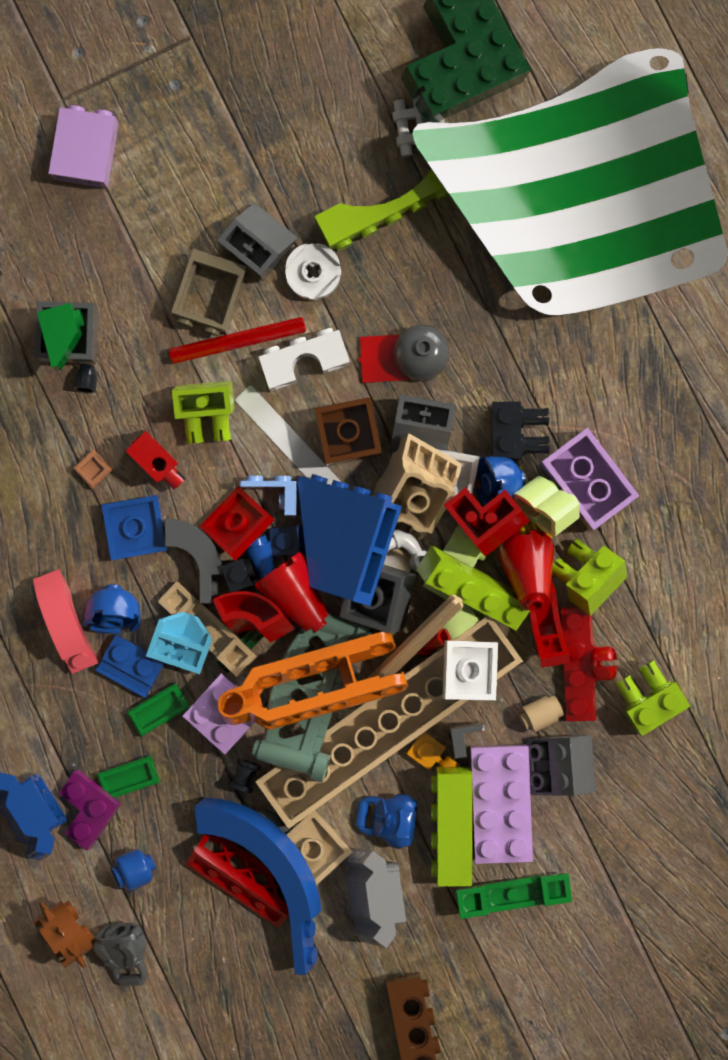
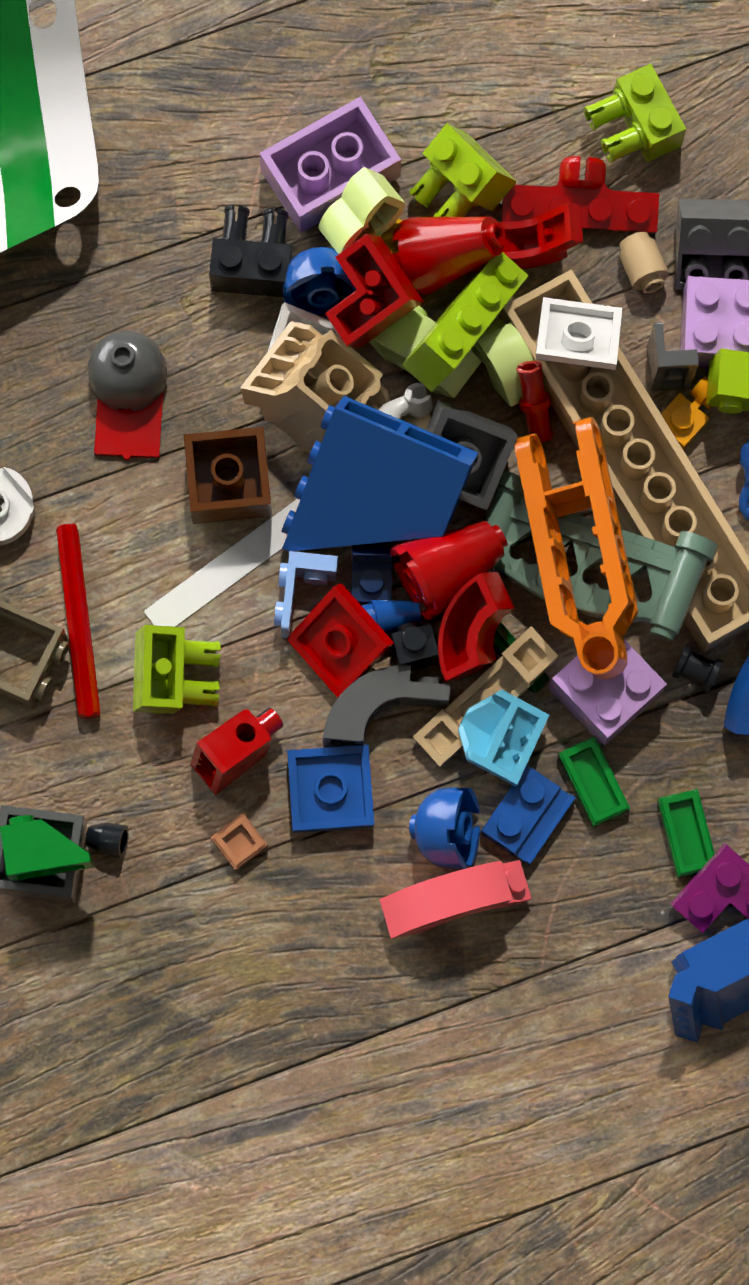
camera: 90 degrees left, 10 degrees down
(325, 348) = (109, 495): white arch -> none
(420, 637) = (529, 401): tan axle -> none
(425, 420) = (220, 370): dark grey slope -> none

